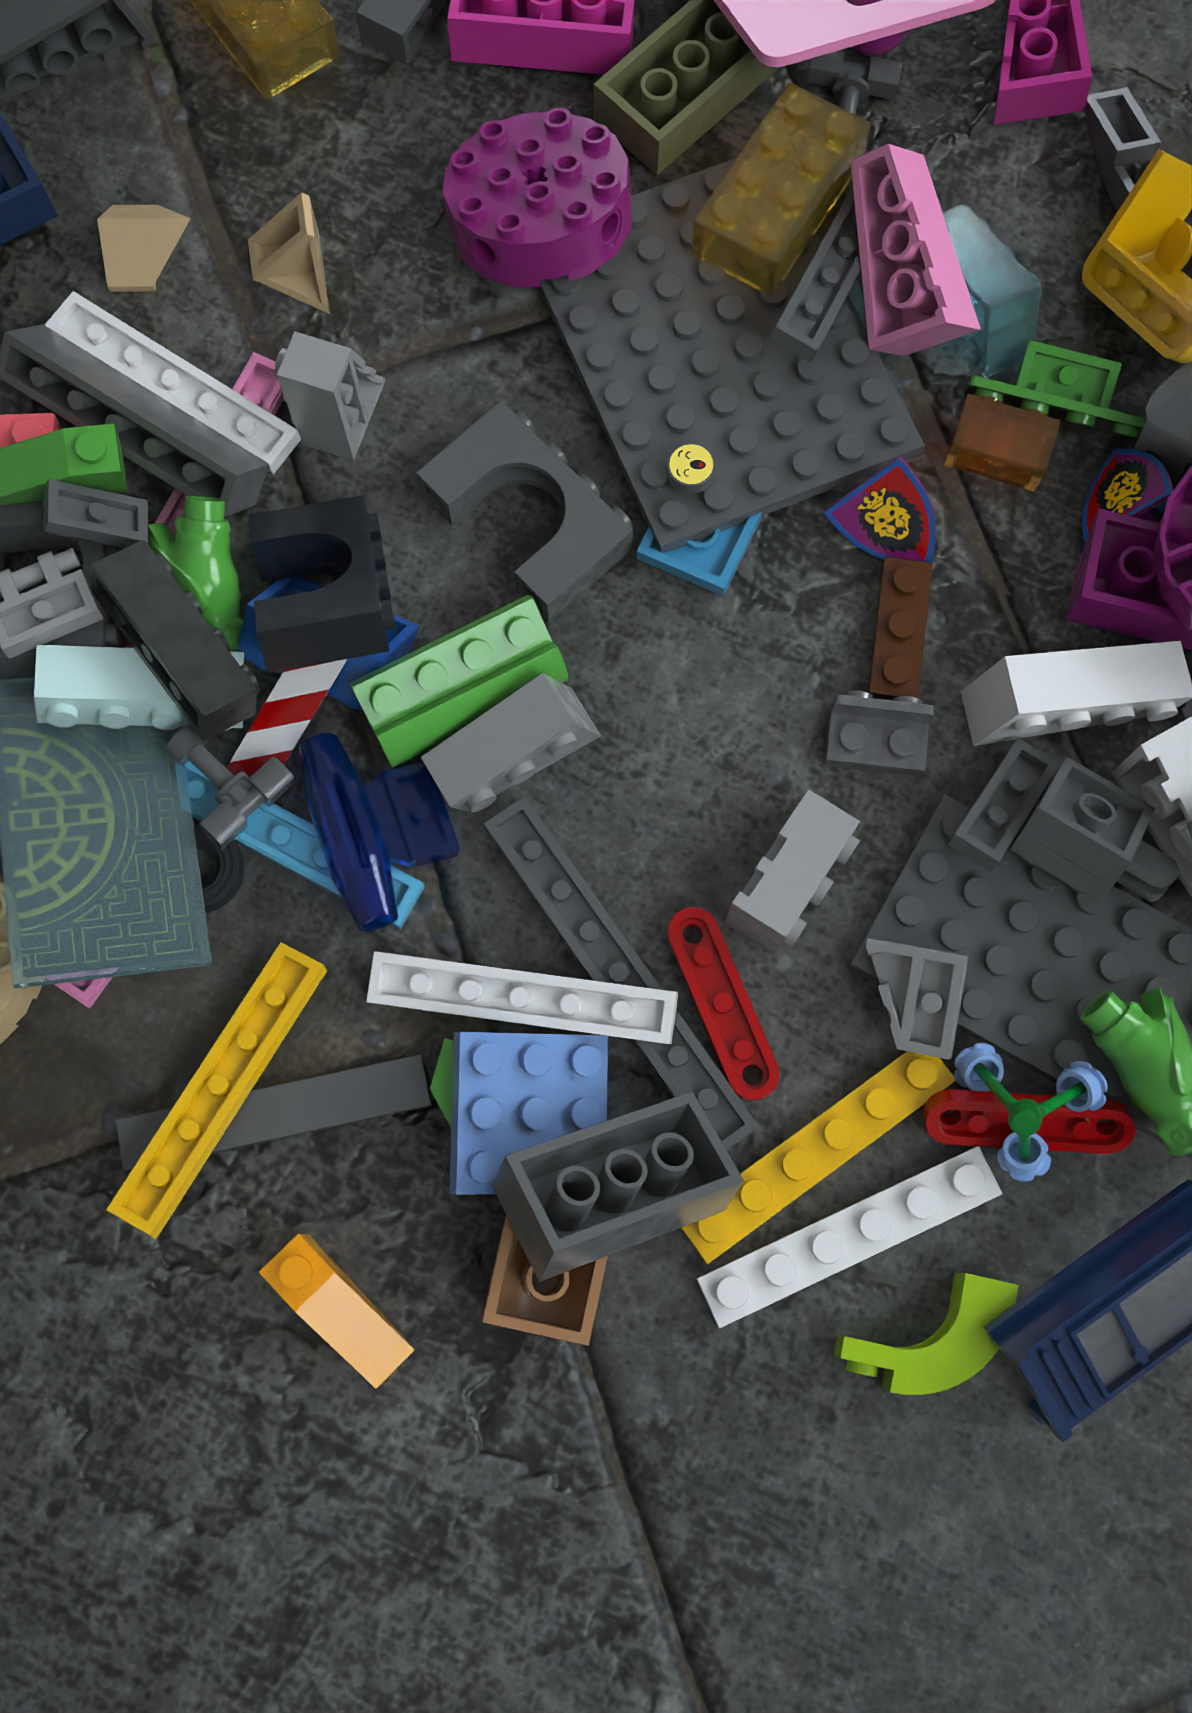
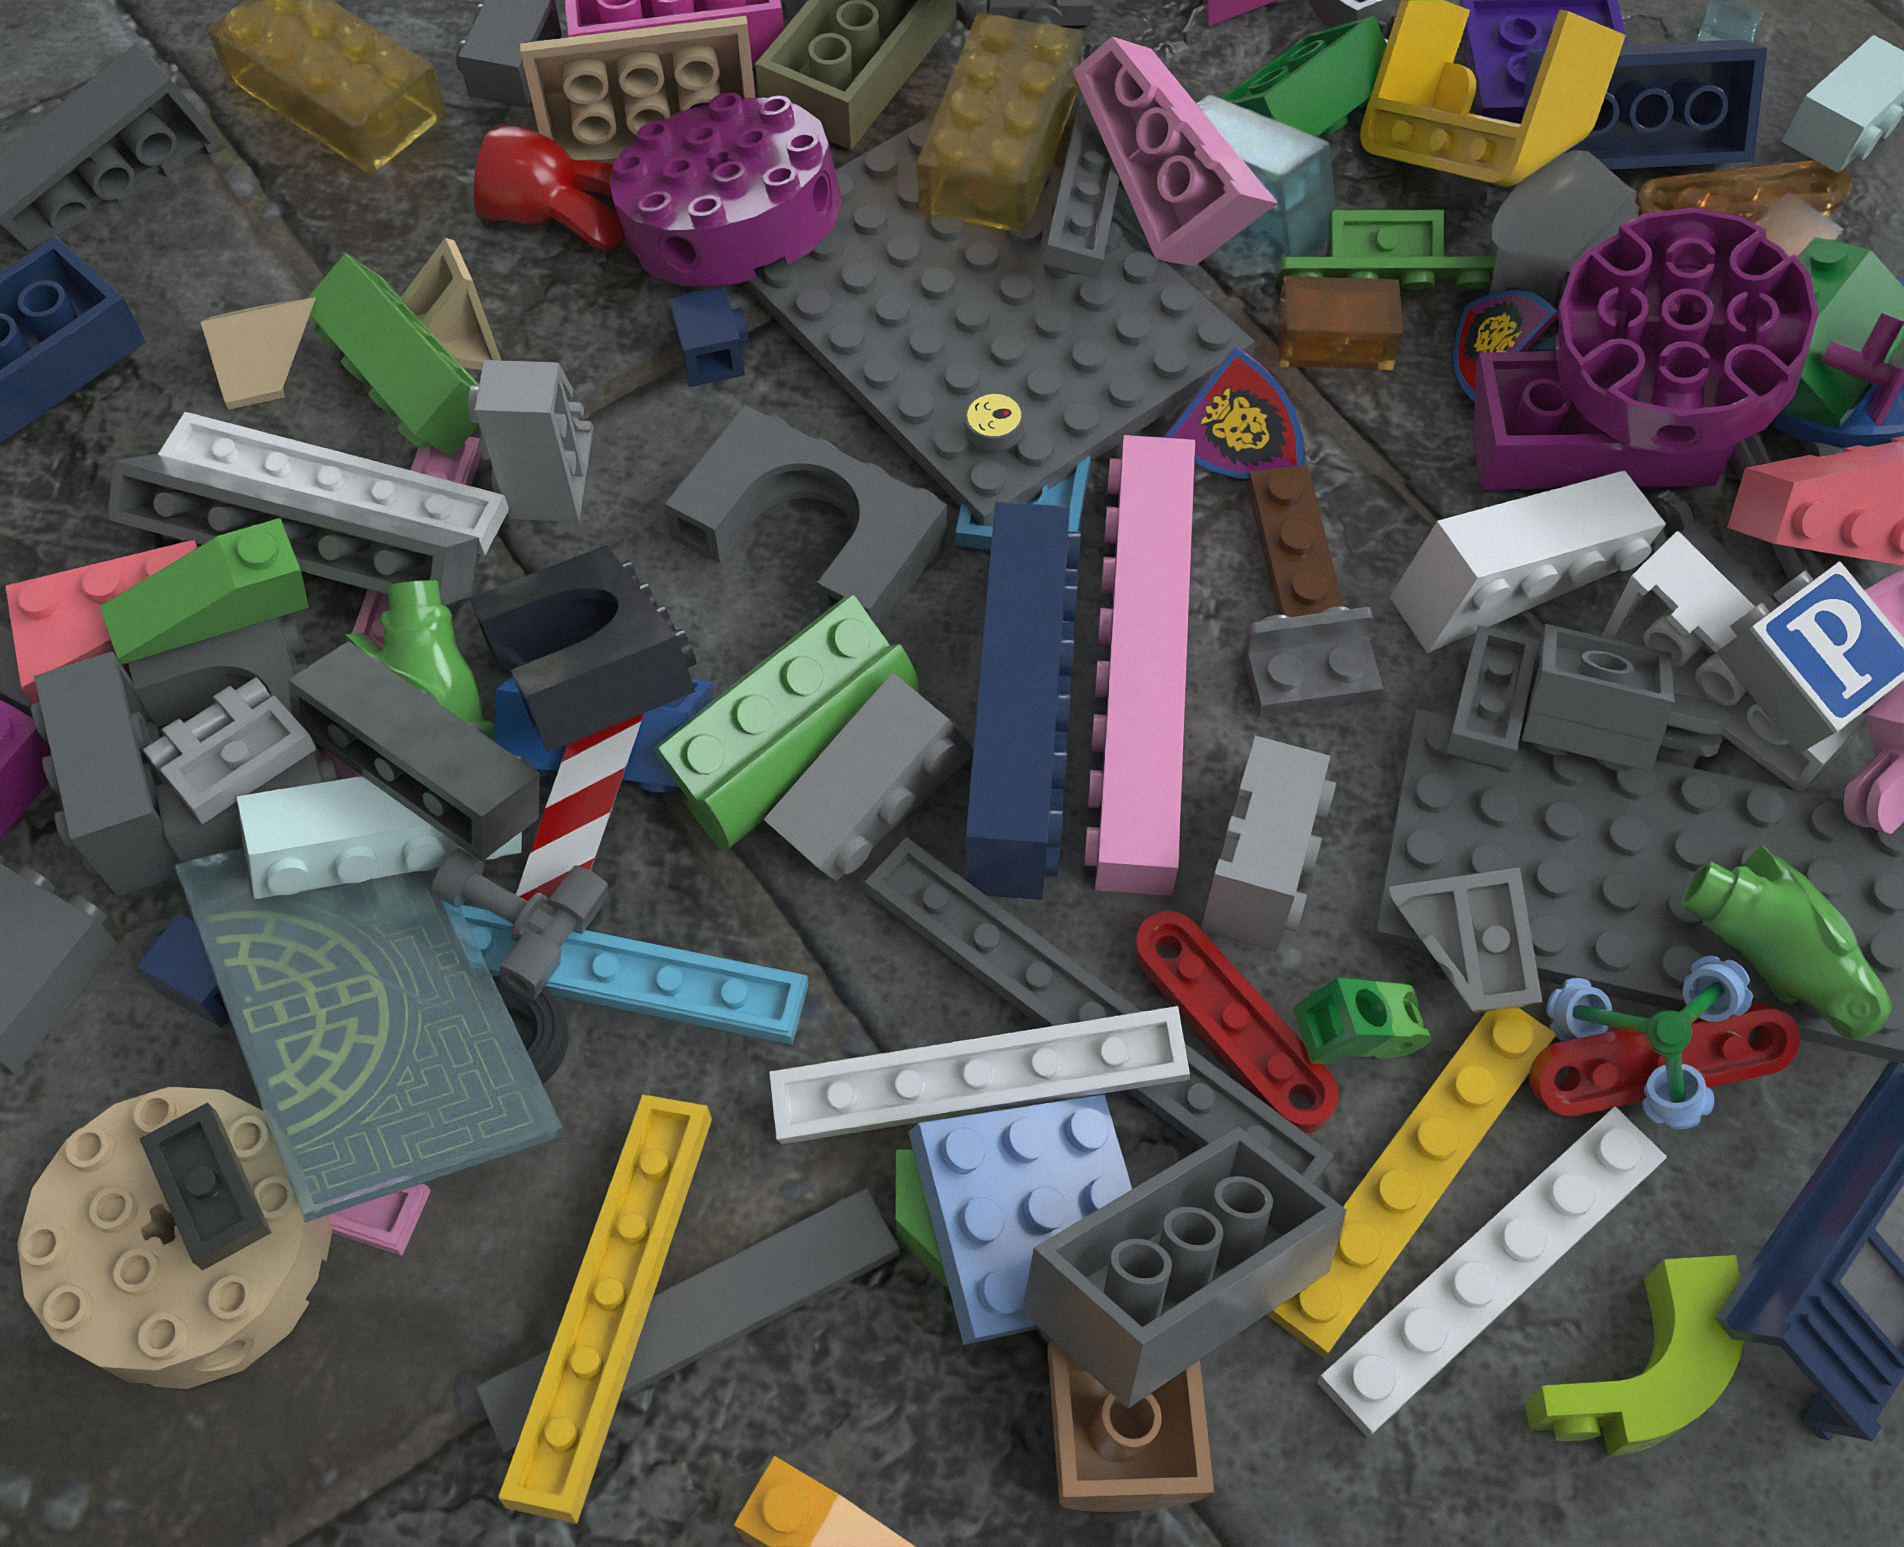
camera: 15 degrees left, 15 degrees down
(94, 515) = (271, 632): dark grey hinge -> none
(241, 282) = (396, 354): none -> bright green brick
(368, 827) = (725, 920): clear blue plate -> none
(387, 147) = (536, 181): none -> red piece
(461, 85) = (606, 86): none -> tan slope
(493, 324) = (709, 335): none -> dark blue brick
(638, 708) = (1023, 702): none -> dark blue brick
(749, 698) = (1145, 669): none -> bright pink brick
(812, 1033) = (1361, 1021): none -> green leg
(1055, 209) = (1316, 78): none -> green slope

